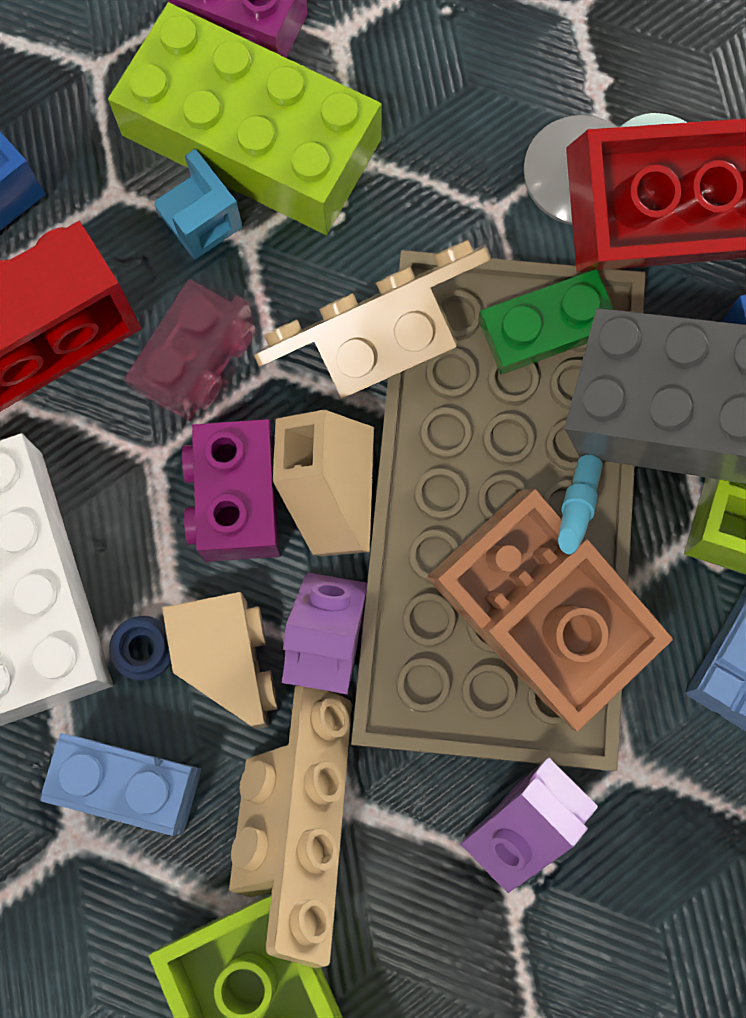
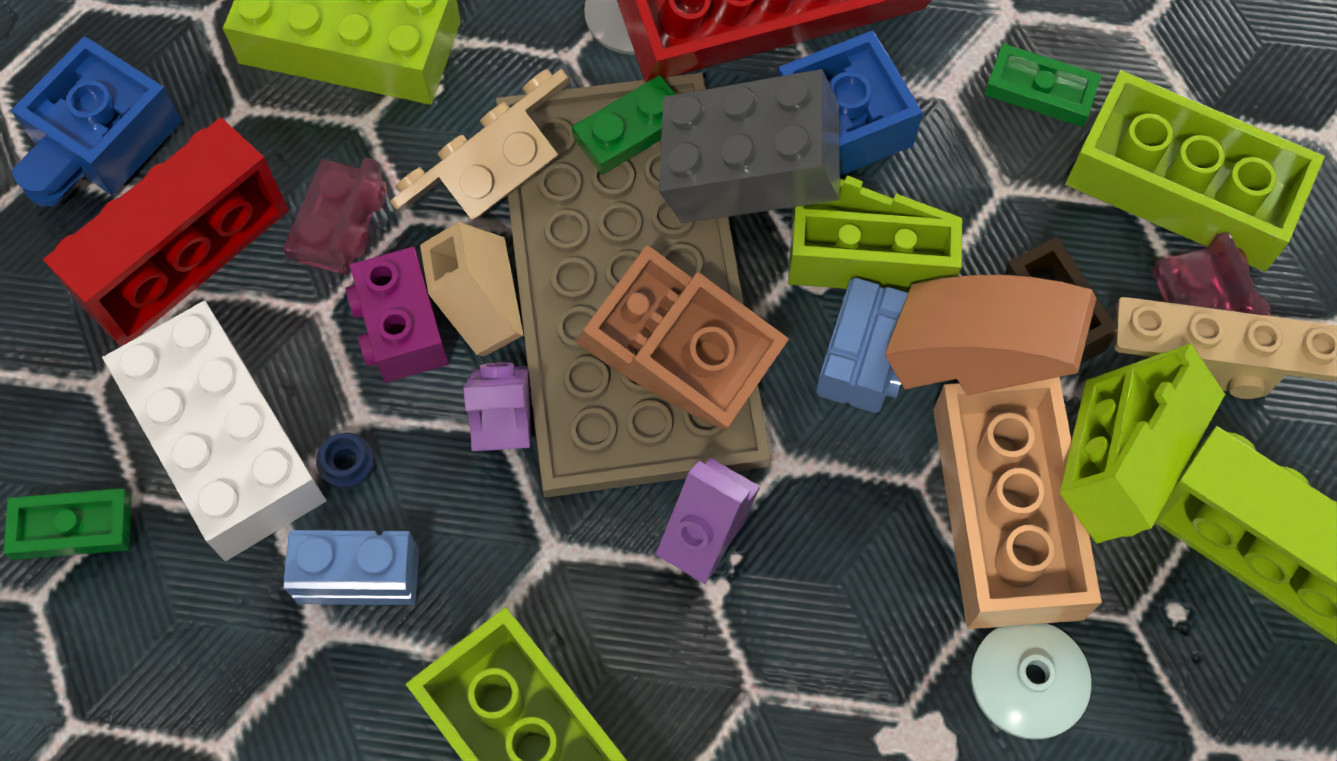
camera: 15 degrees left, 10 degrees down
(199, 208) = (320, 104): dark azure panel -> none
(216, 653) = (411, 449): tan slope -> none
(293, 827) = (508, 560): tan bracket -> none
(579, 503) = (687, 250): medium azure piece -> none

